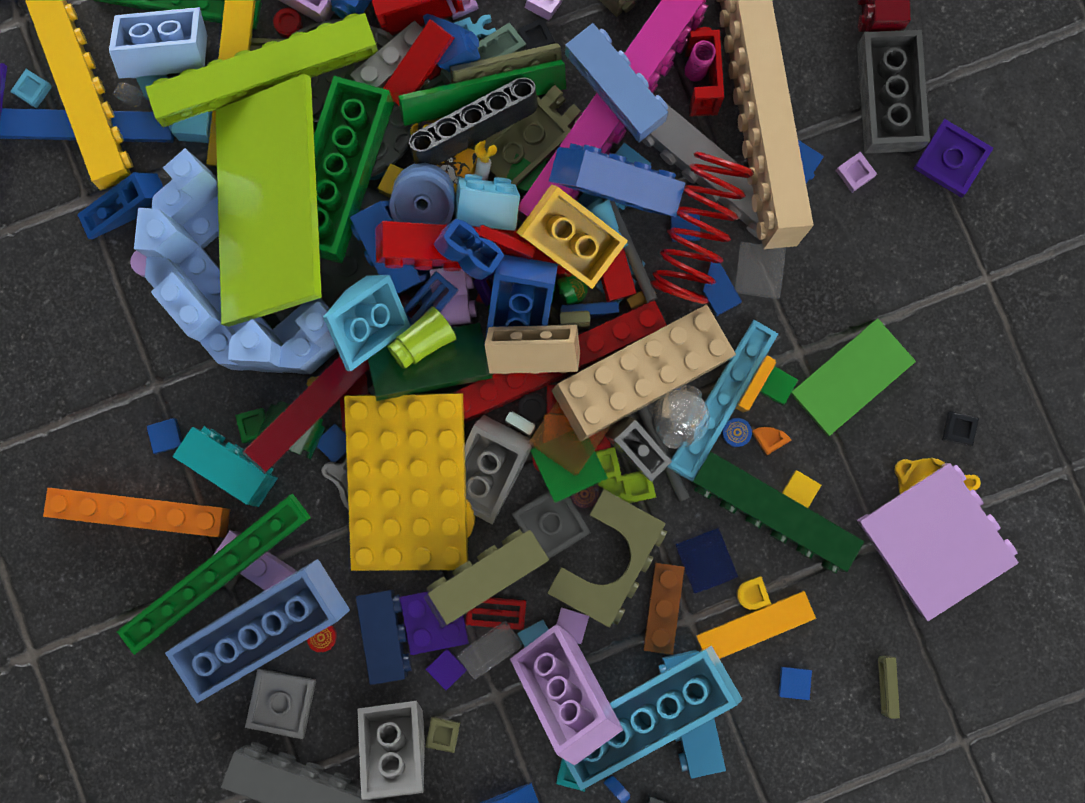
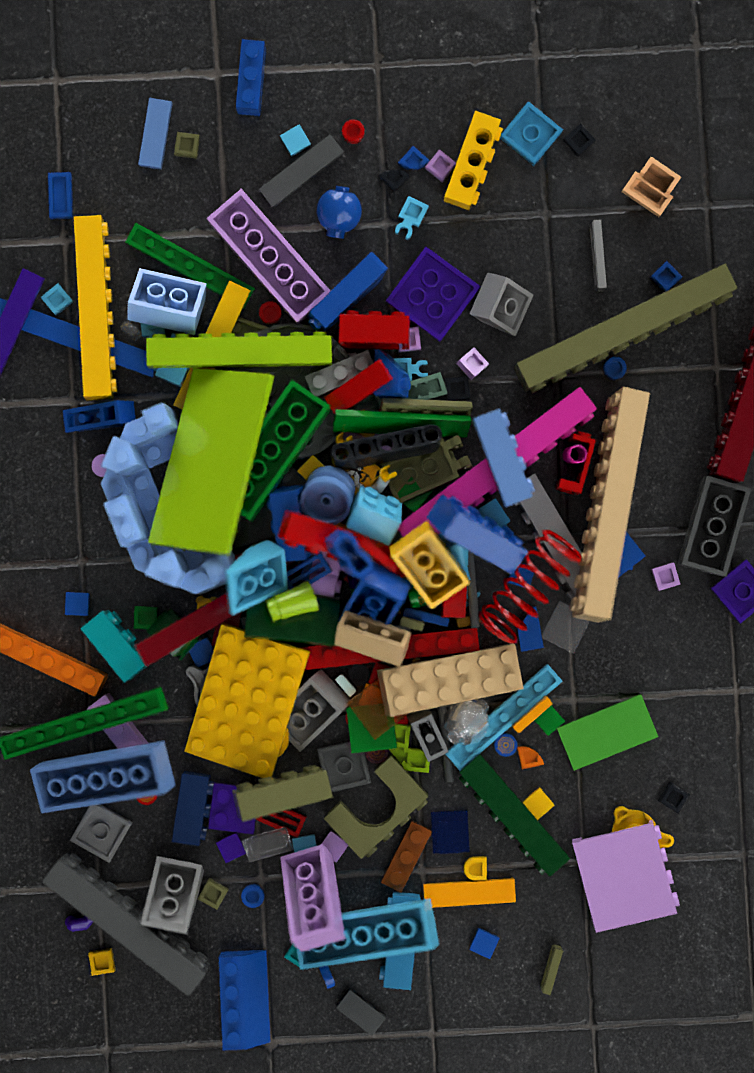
camera: 15 degrees right, 5 degrees up
(492, 720) = (253, 895): none -> blue tile

